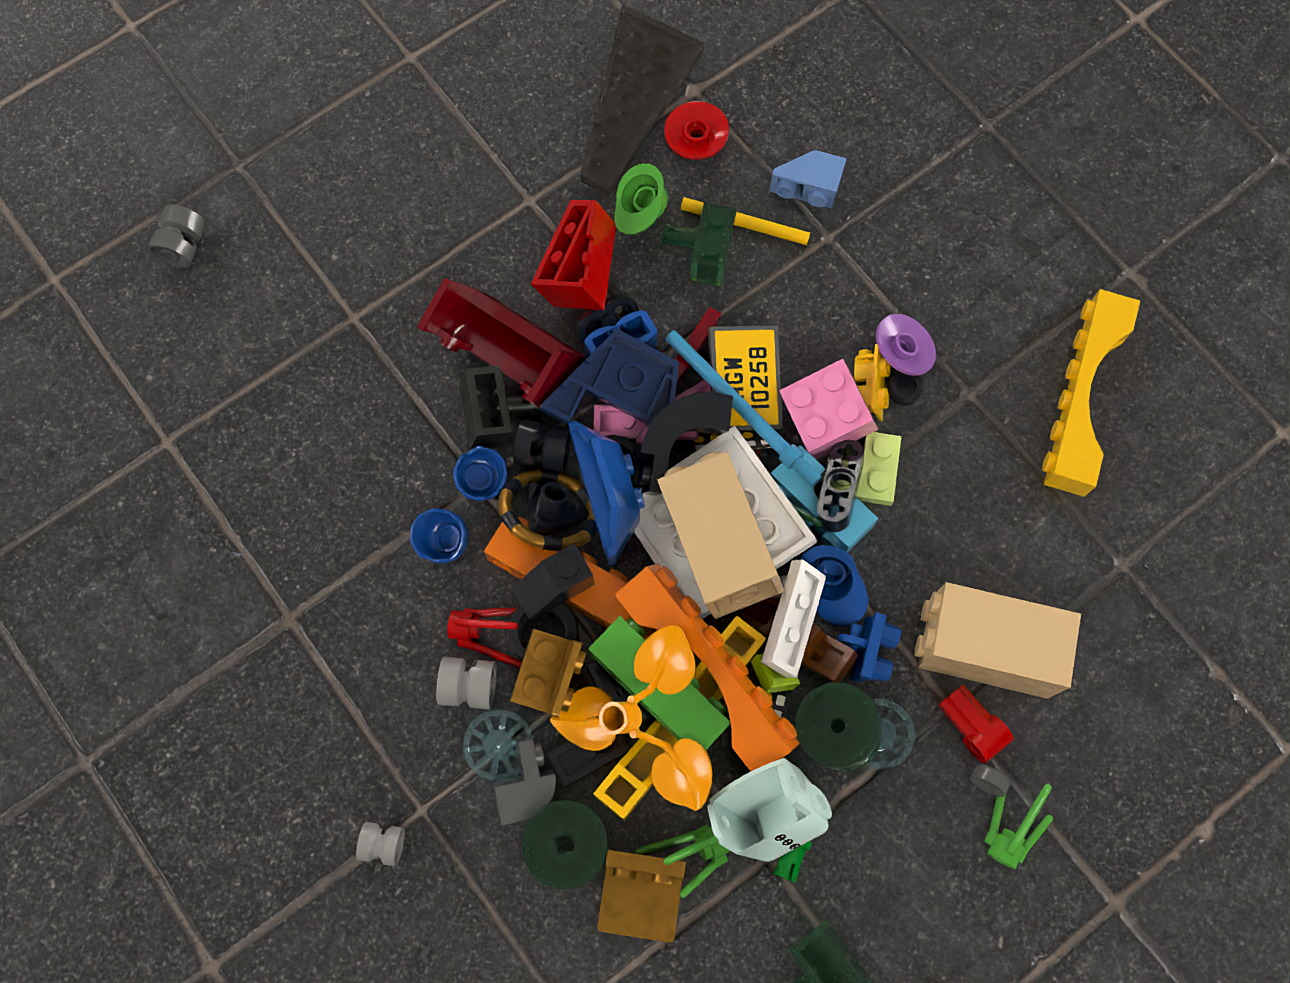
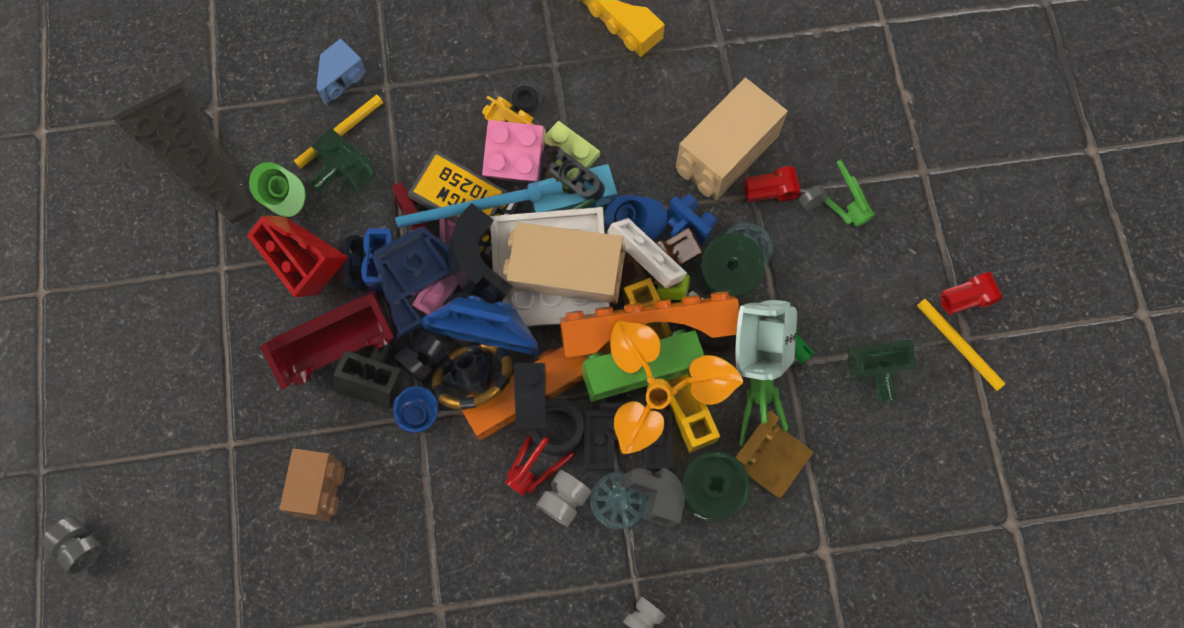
camera: 60 degrees left, 0 degrees up
(343, 418) = (312, 485): none -> medium nougat brick
(439, 536) = (444, 462): blue hair -> none
(547, 673) = (594, 432): pearl gold bracket -> none
(694, 119) = (243, 115): red dish -> none
(906, 344) = (497, 80): medium lavender dish -> none

